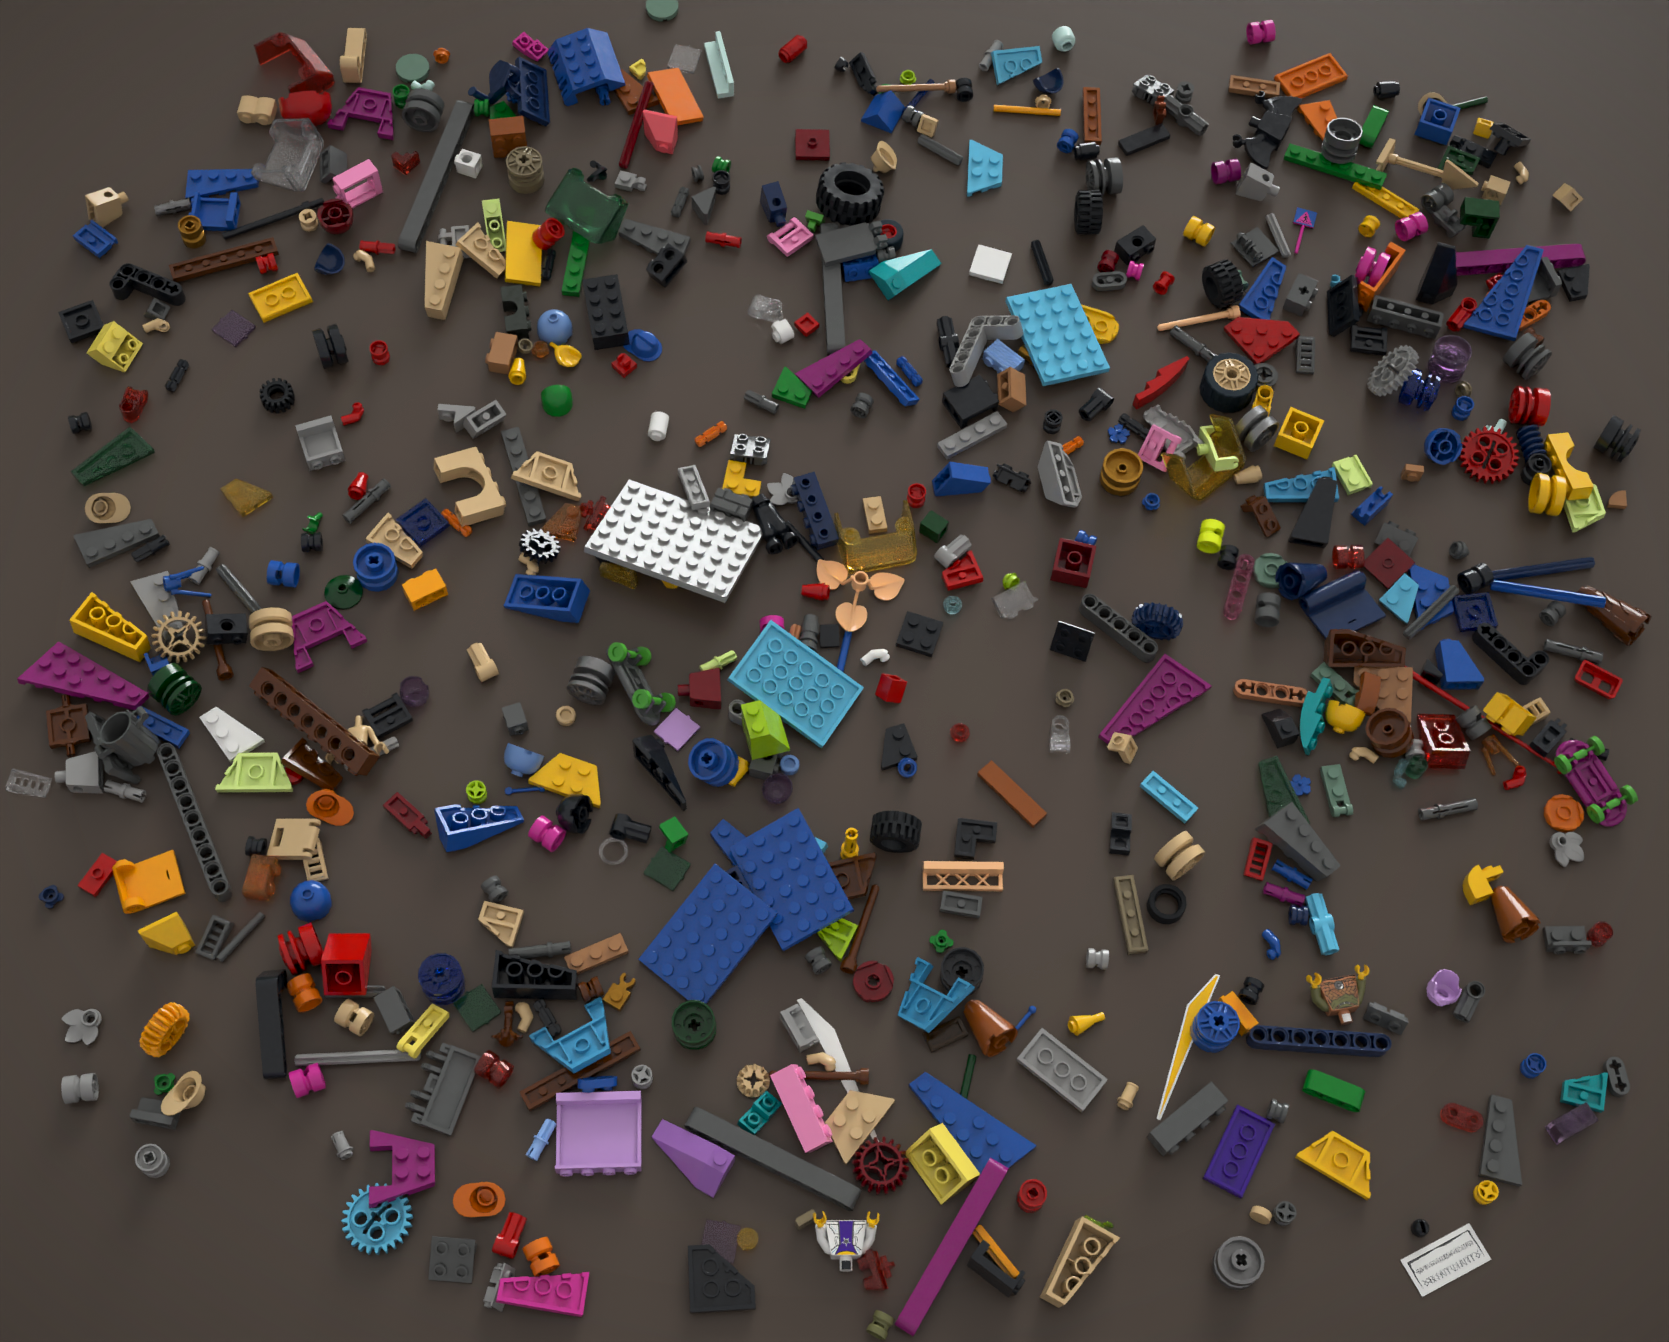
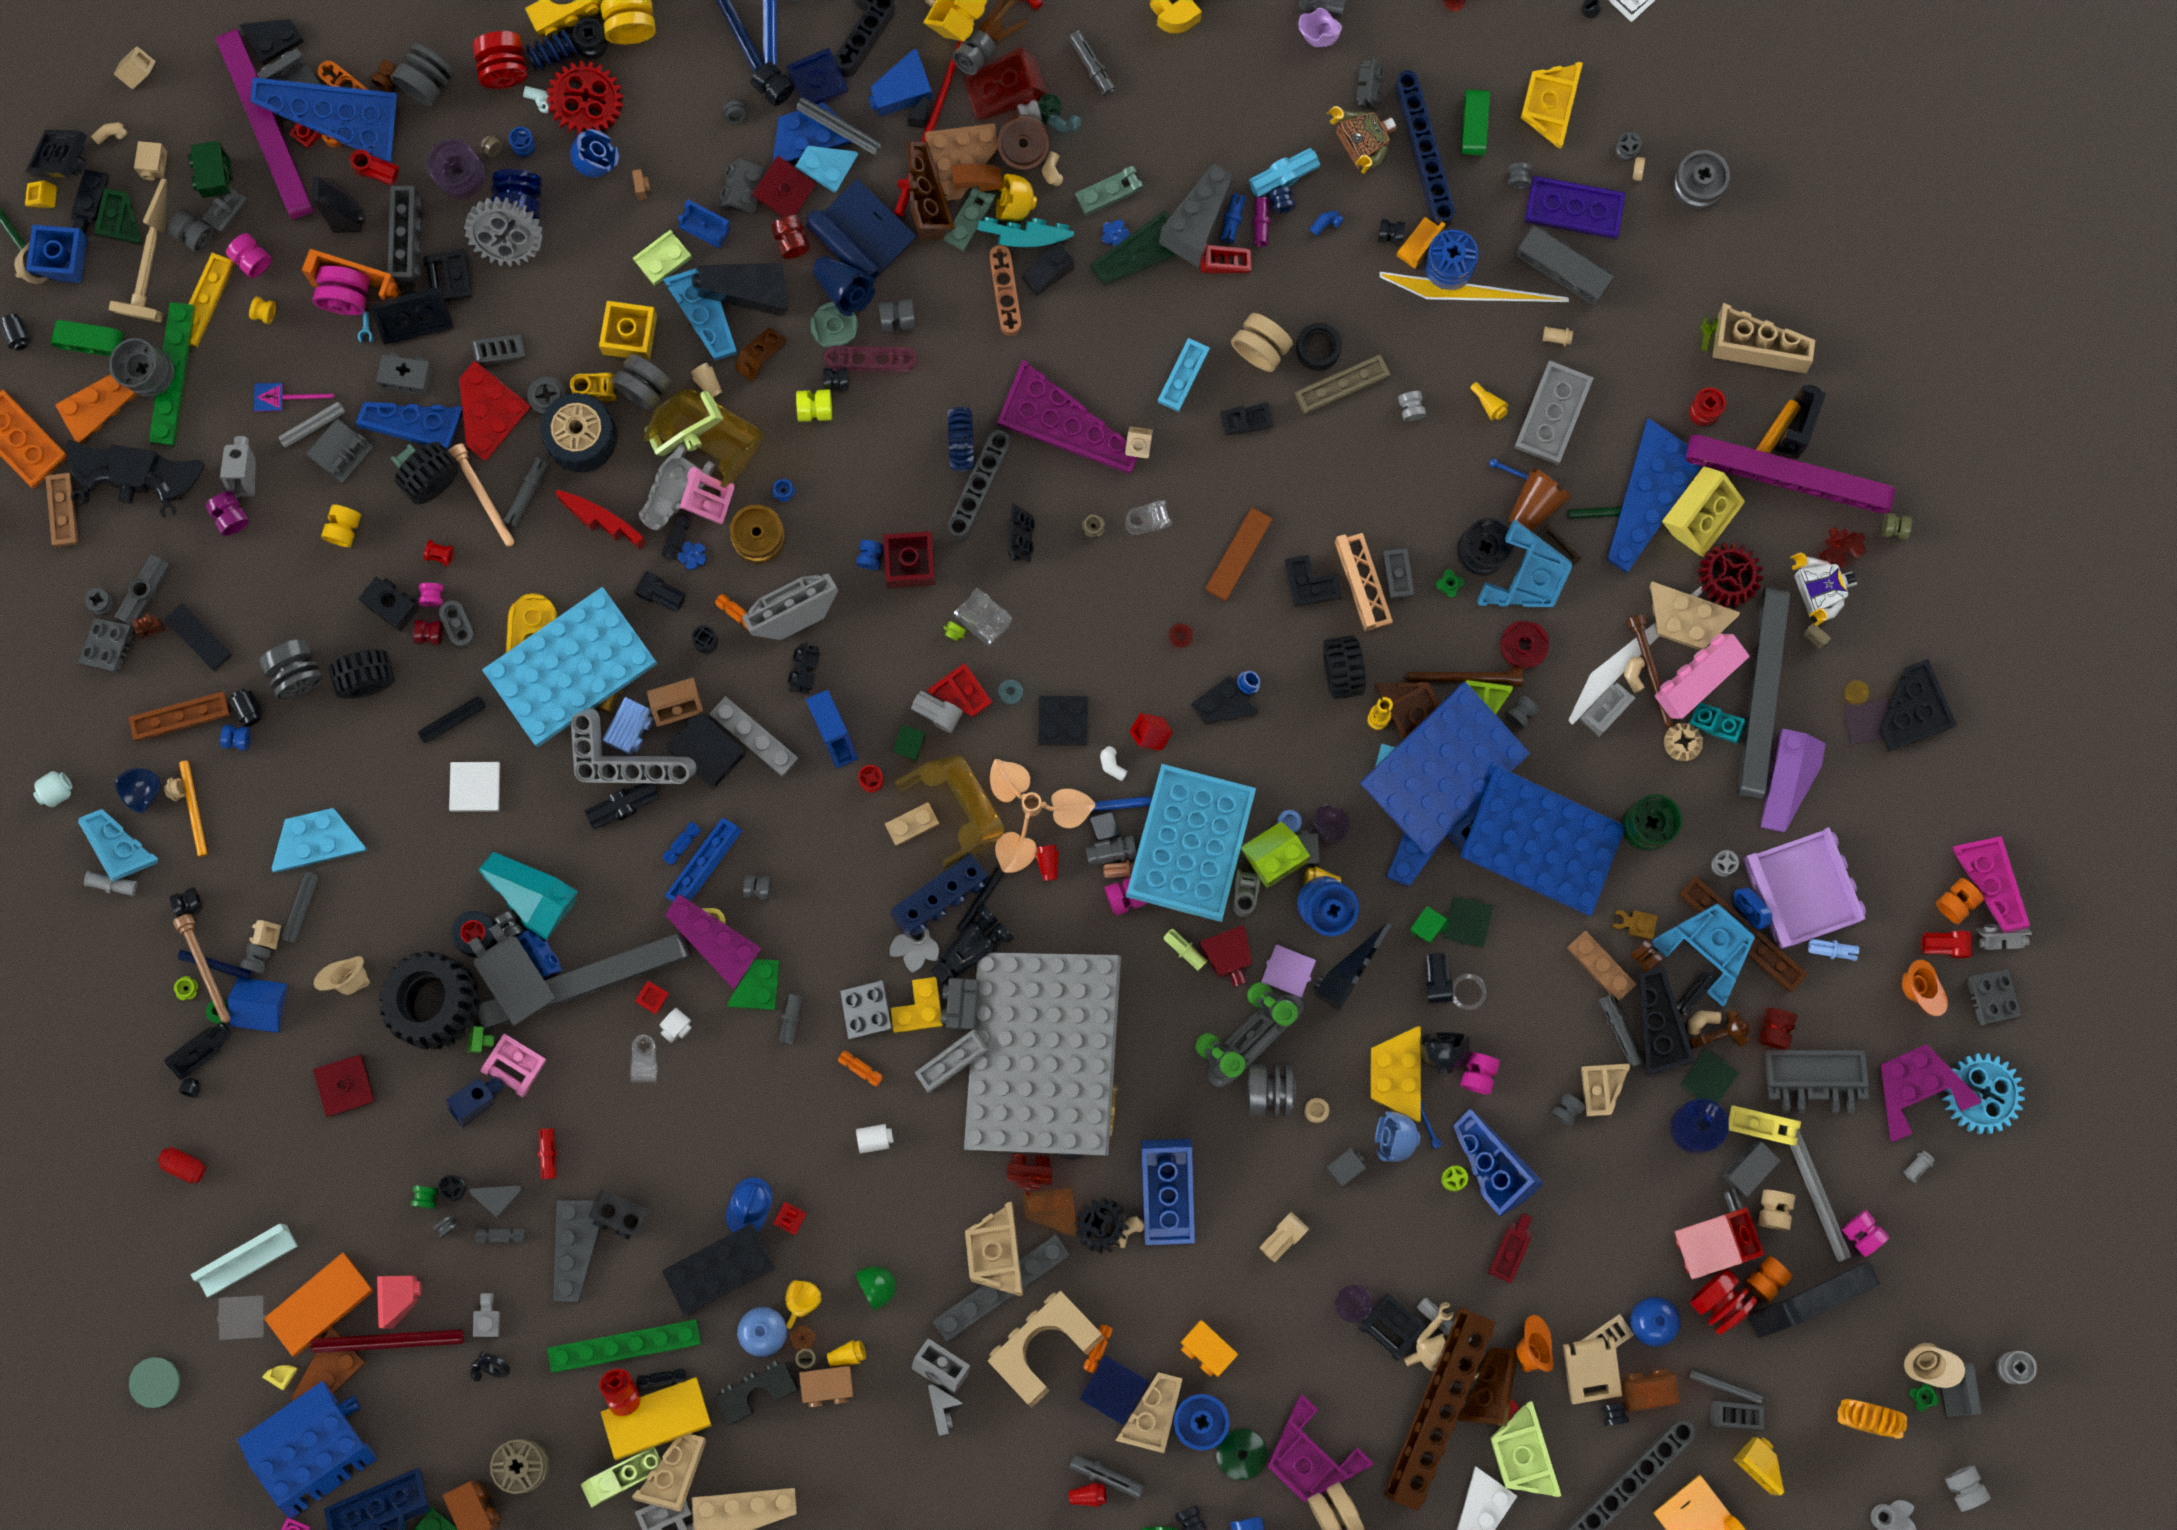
camera: 105 degrees left, 15 degrees up
(586, 208) = (570, 1354): clear green windscreen -> none

